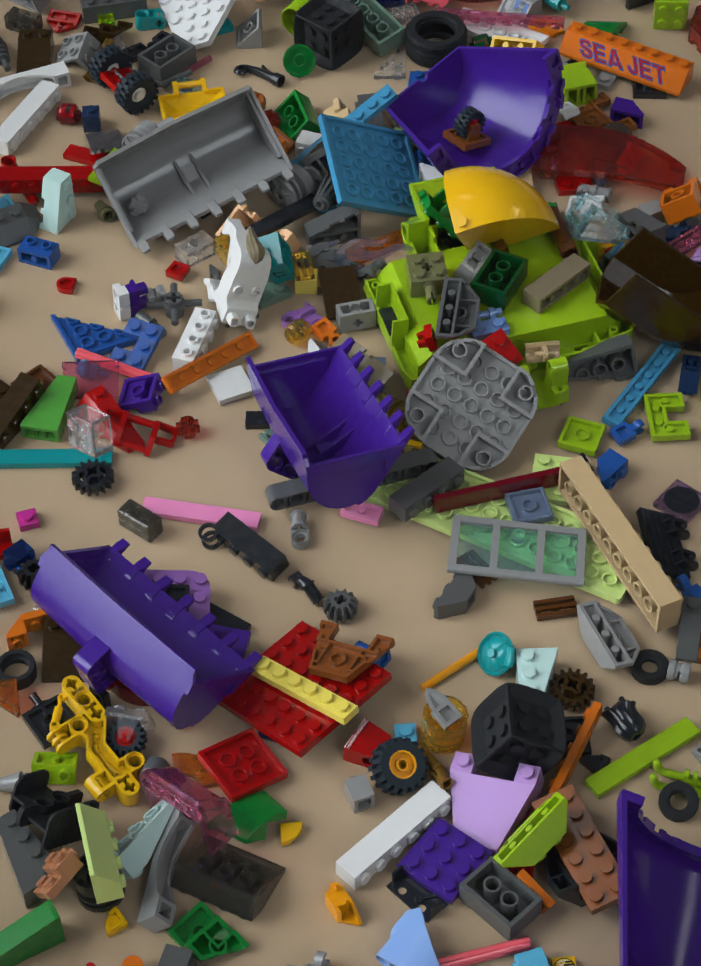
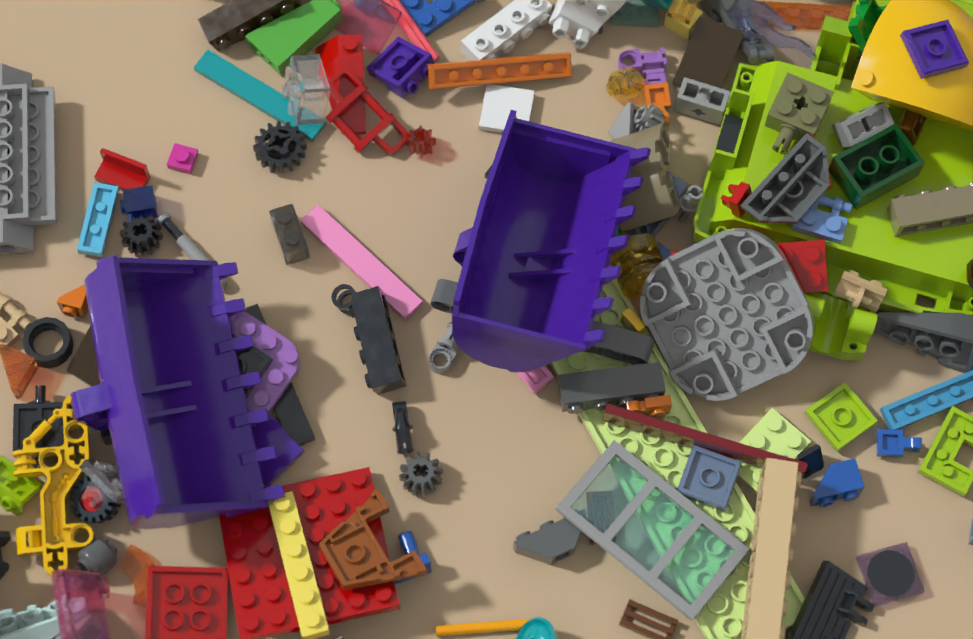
camera: 30 degrees right, 20 degrees up
(328, 337) = (648, 117): none -> light grey gear
(394, 366) = (689, 202): none -> light grey axle
(464, 481) = (651, 406): none -> orange plate
(492, 183) = (934, 49): none -> dark purple tile

